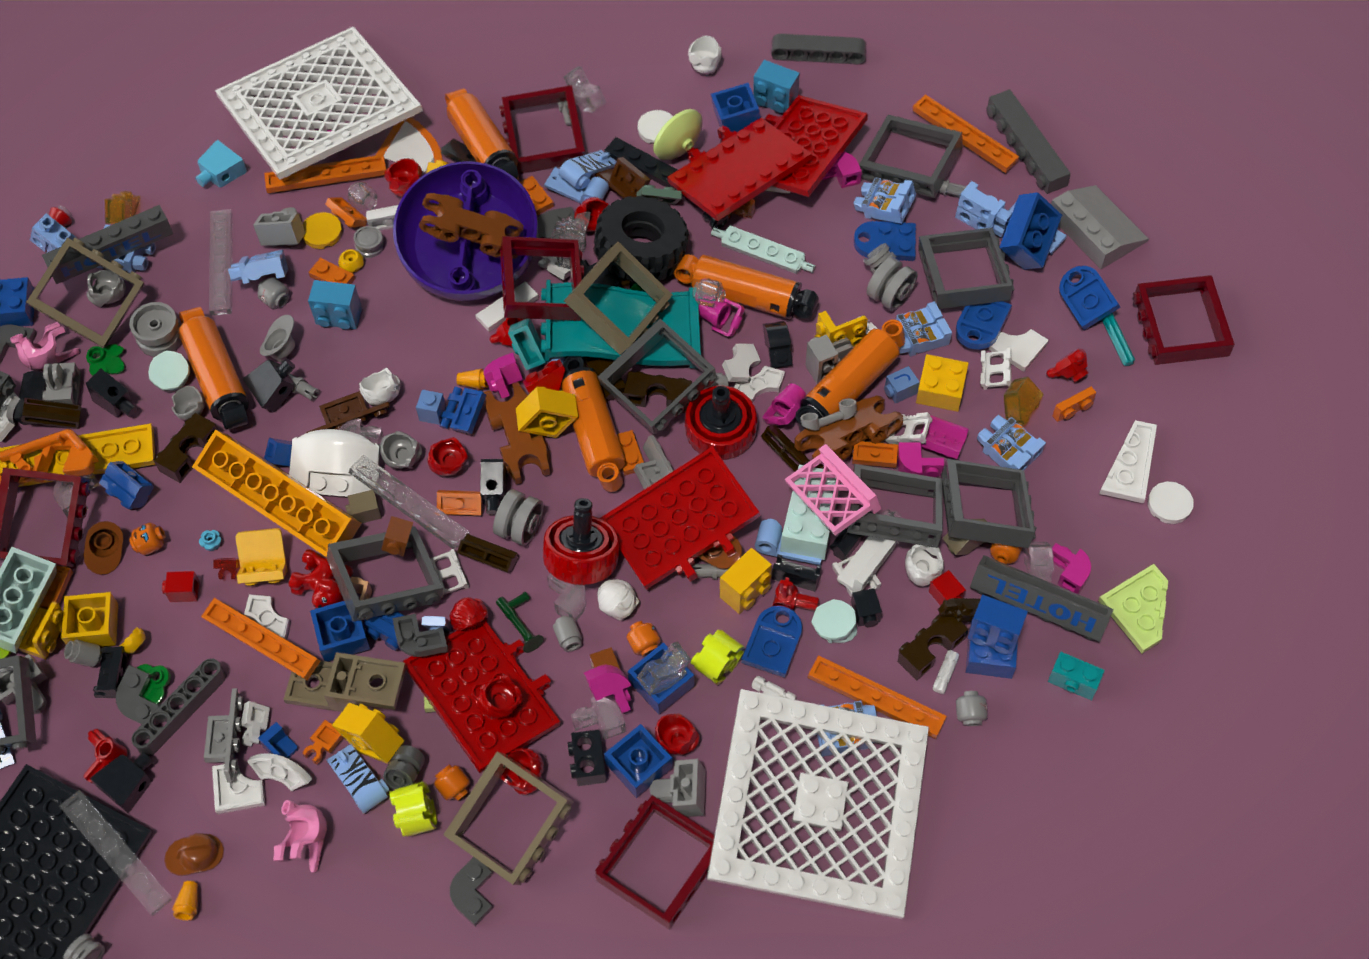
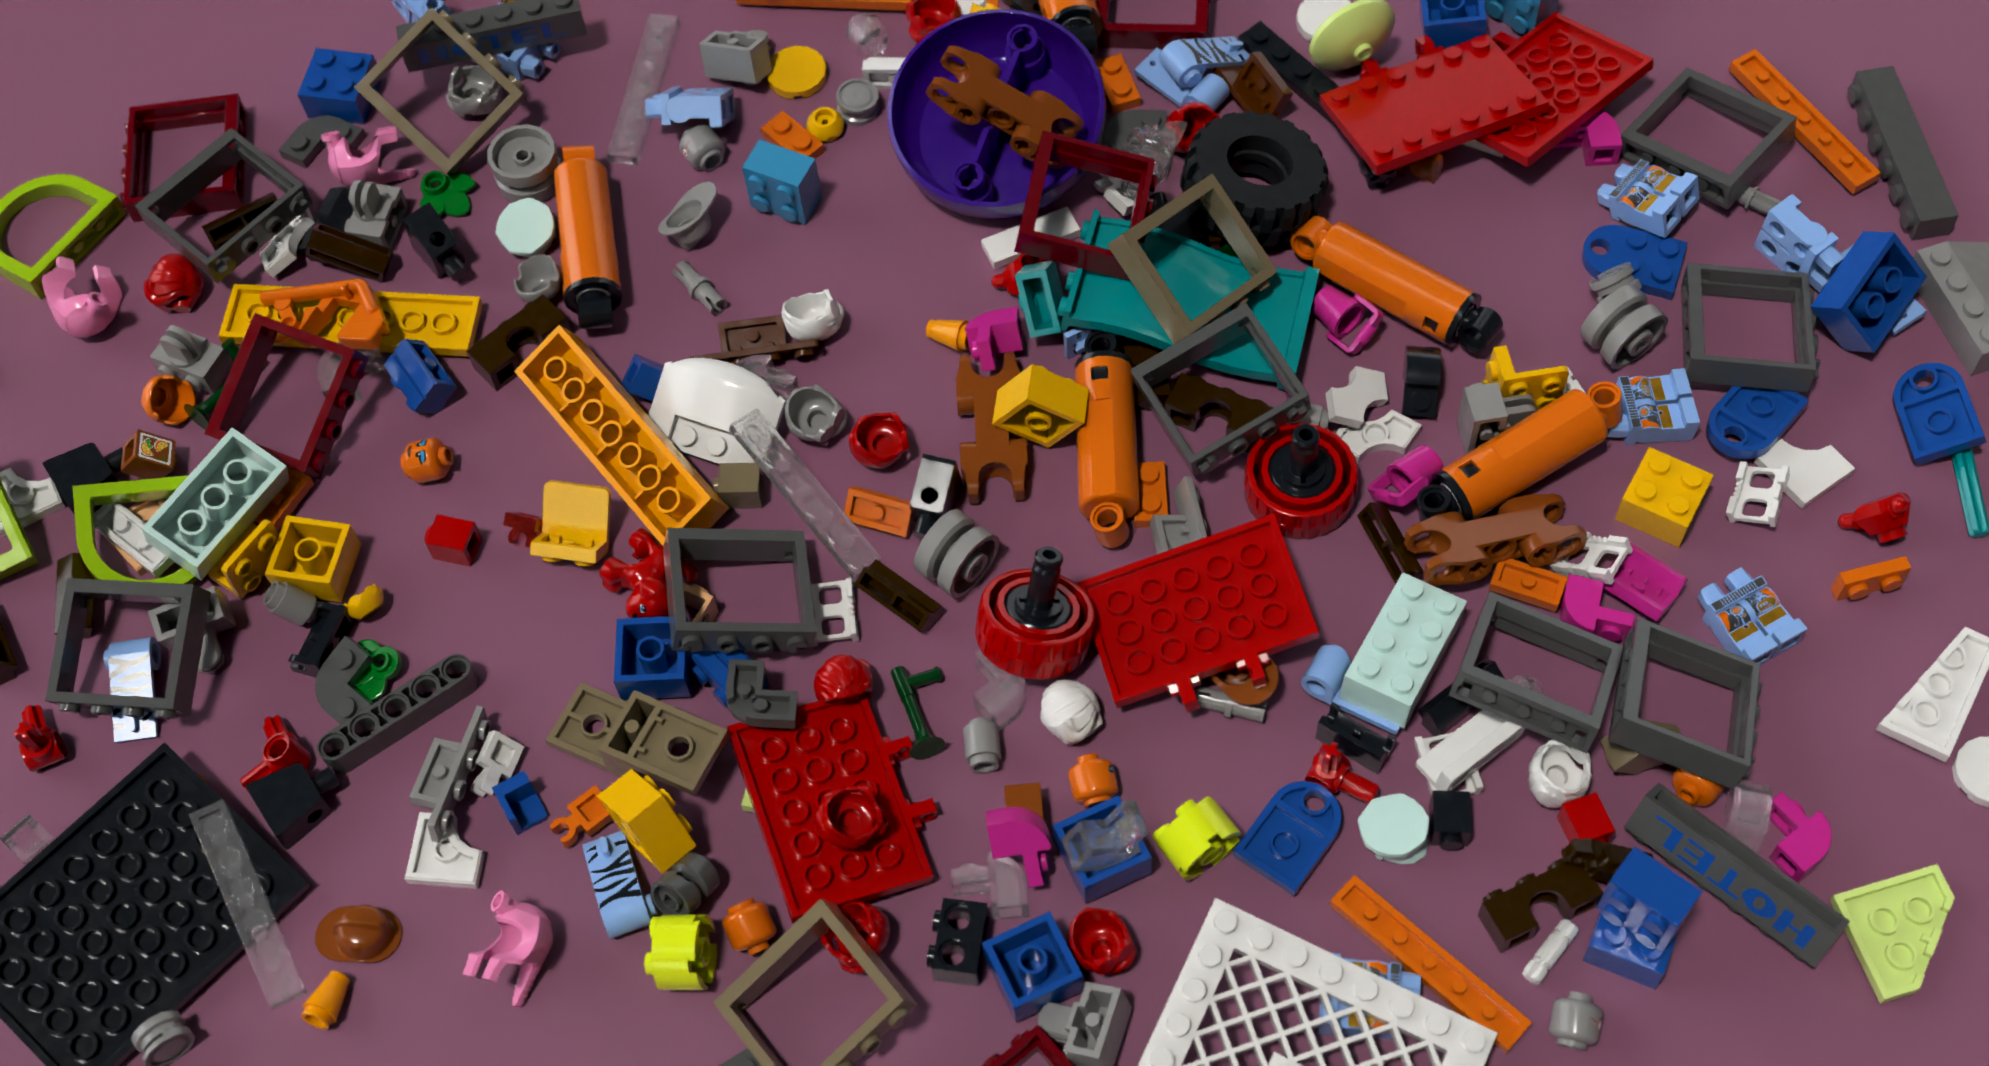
camera: 20 degrees right, 0 degrees up
(103, 547) = (362, 458): dark orange piece -> none
(212, 544) = (515, 489): medium azure plate -> none
(260, 610) = (563, 629): white tile -> none
(261, 639) = (539, 644): orange plate -> none
(271, 383) = (660, 276): black torso -> none
(279, 769) = (509, 841): white tile -> none
(347, 212) = (837, 52): orange plate -> none
(397, 536) = (769, 539): dark orange brick -> none
(430, 407) = (877, 361): medium blue brick -> none
(436, 622) = (791, 682): light blue plate -> none
(467, 410) = (926, 380): blue plate -> none
(548, 377) = (1056, 356): red slope -> none
(666, 194) = (1312, 121): sand green plate -> none
(709, 292) = (1334, 280): clear head -> none
(745, 581) = (1271, 732): yellow brick -> none
(763, 249) = (1438, 234): light aqua plate -> none
(771, 688) = (1268, 910): white axle -> none
(843, 475) = (1471, 619): bright pink fence -> none
(847, 409) = (1500, 504): light grey bar -> none
(901, 385) = (1598, 486): medium blue brick -> none
(1021, 400) = (1785, 552): clear yellow slope -> none
(1076, 676) = (1760, 1012): teal brick -> none

